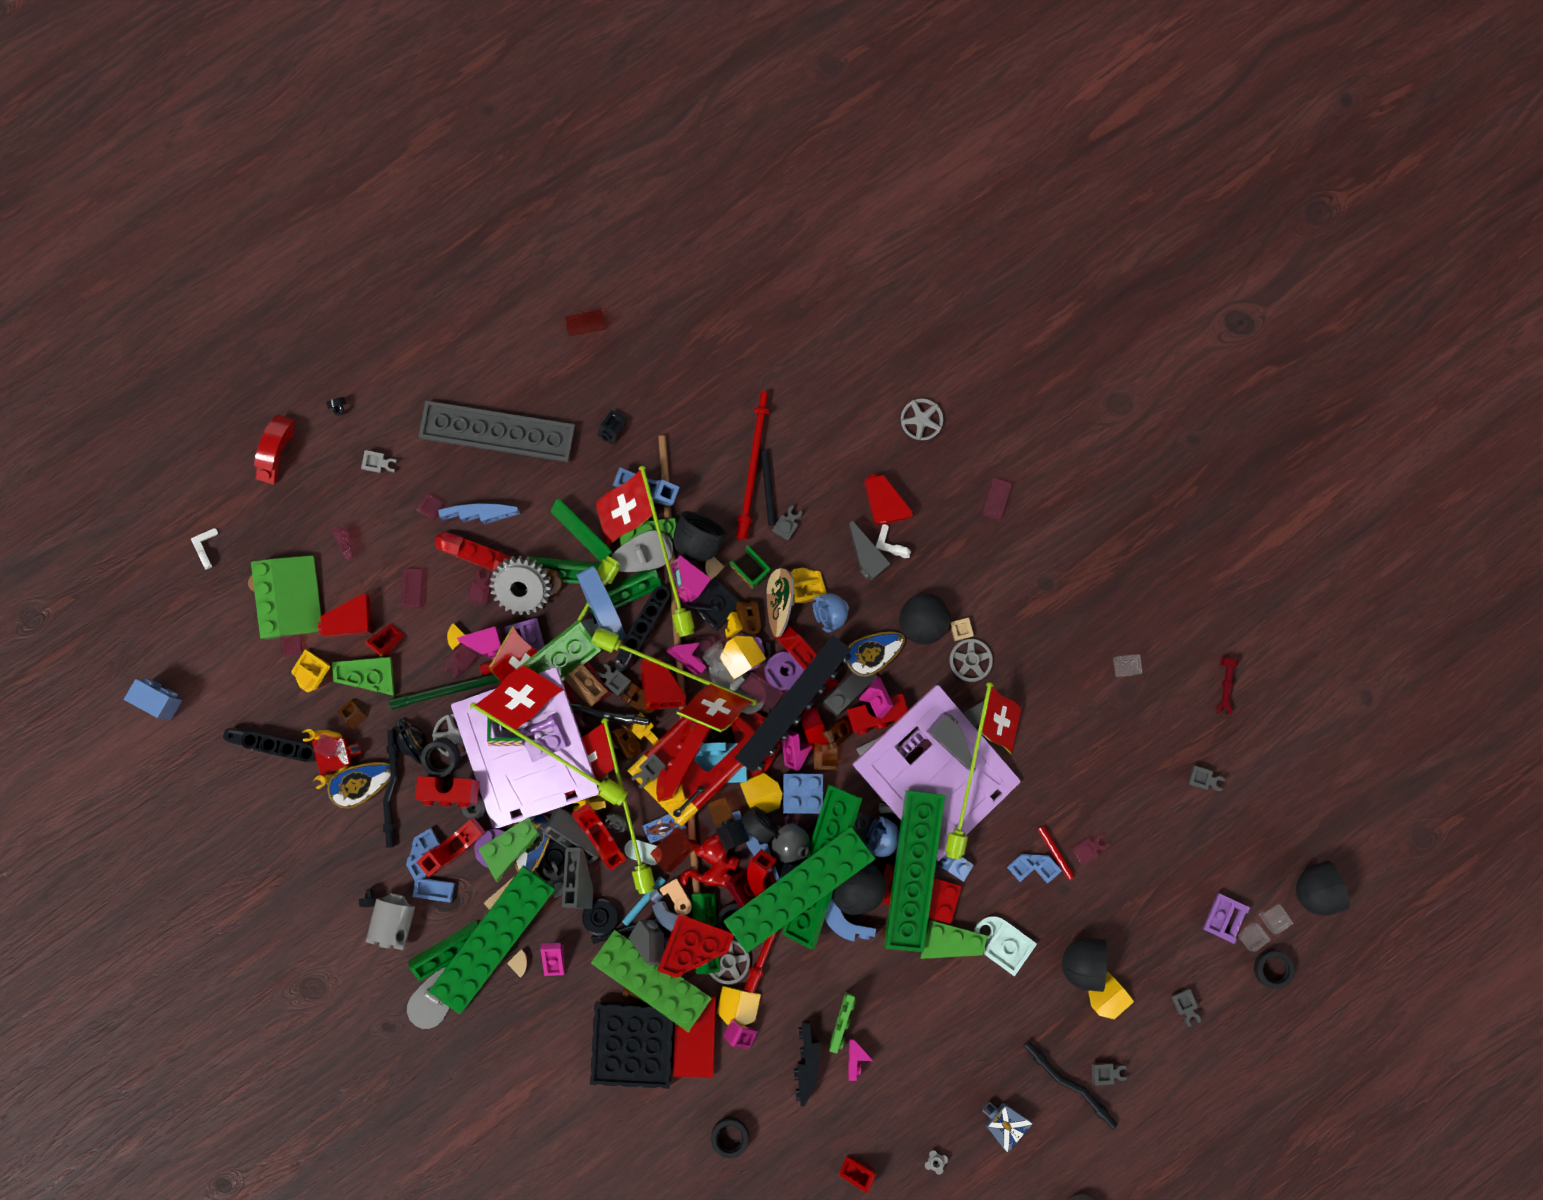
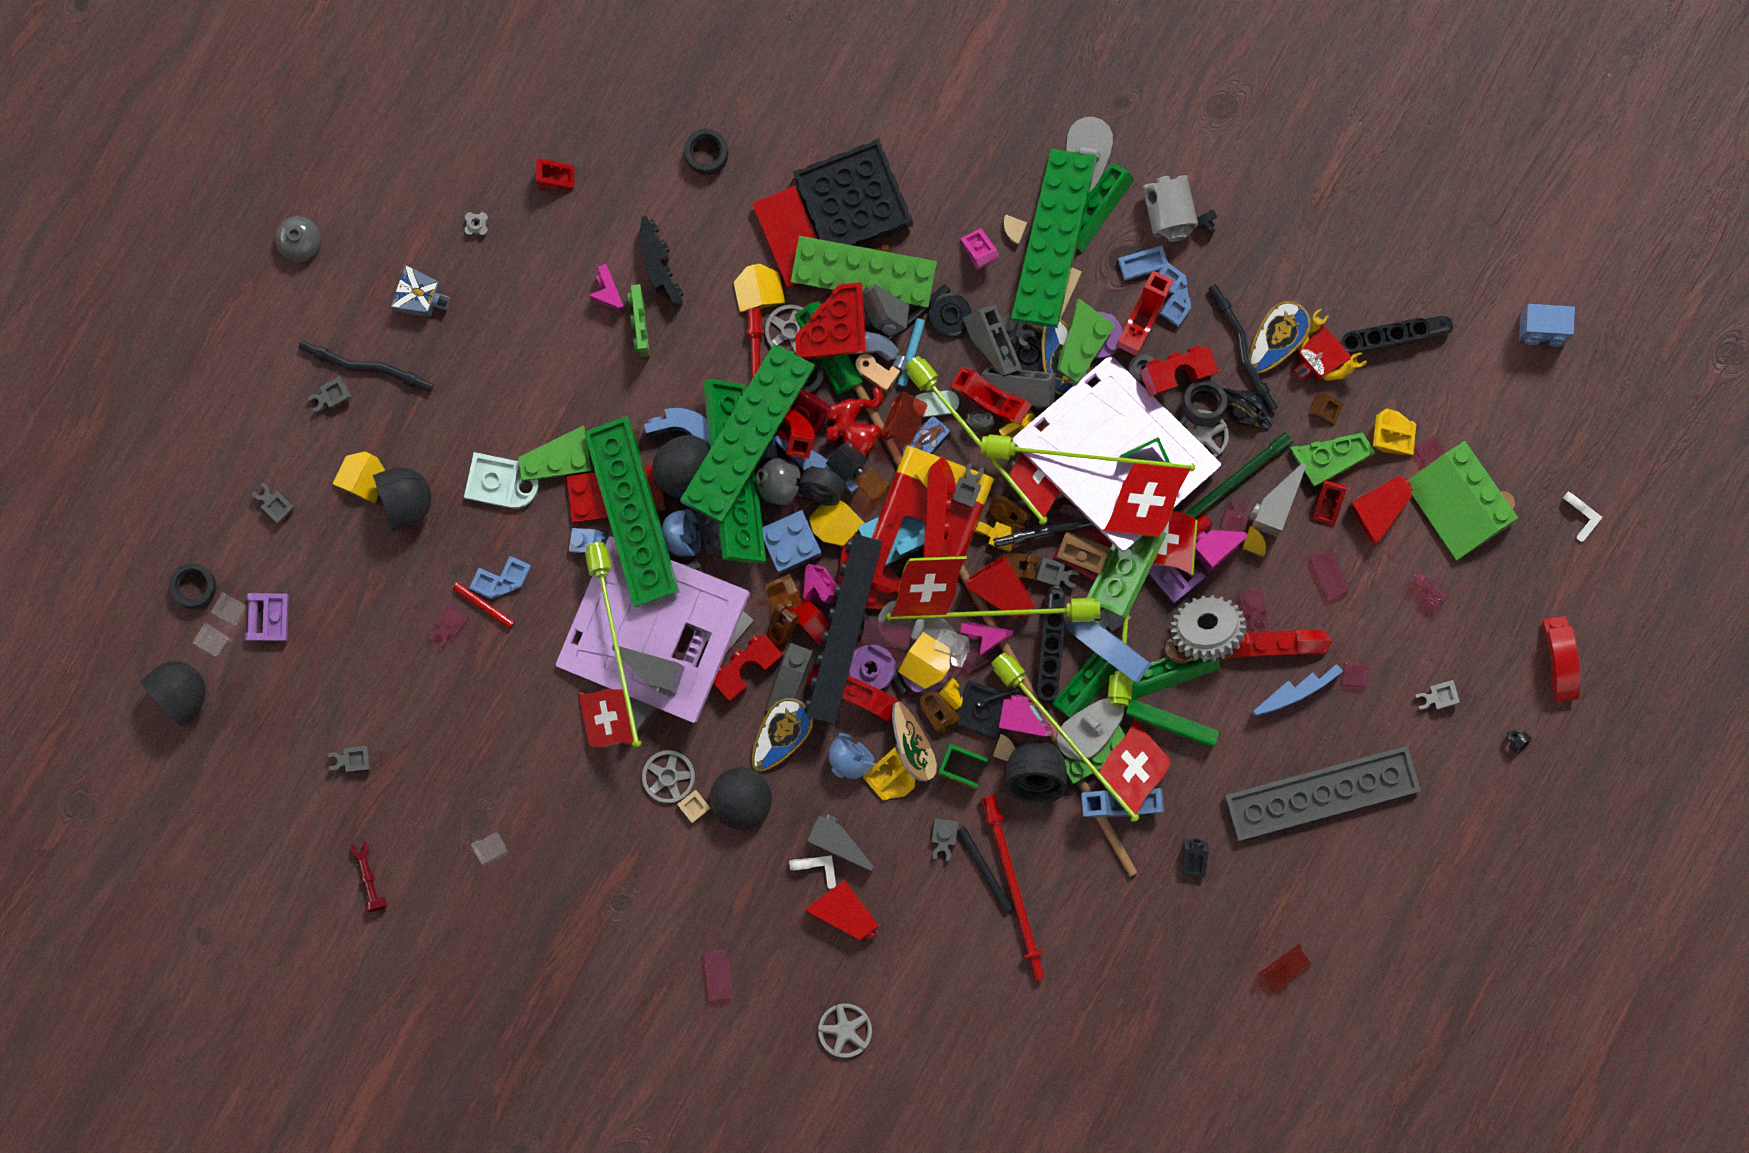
camera: 160 degrees right, 0 degrees up
(327, 746) = (1332, 358): clear pink tile -> none
(425, 653) = (1273, 510): none -> light grey slope
(553, 741) = (1089, 470): medium lavender plate -> none
(677, 812) = (917, 456): black hinge -> none
(739, 1035) = (743, 257): dark pink slope -> none
(878, 697) = (756, 686): dark pink slope -> none

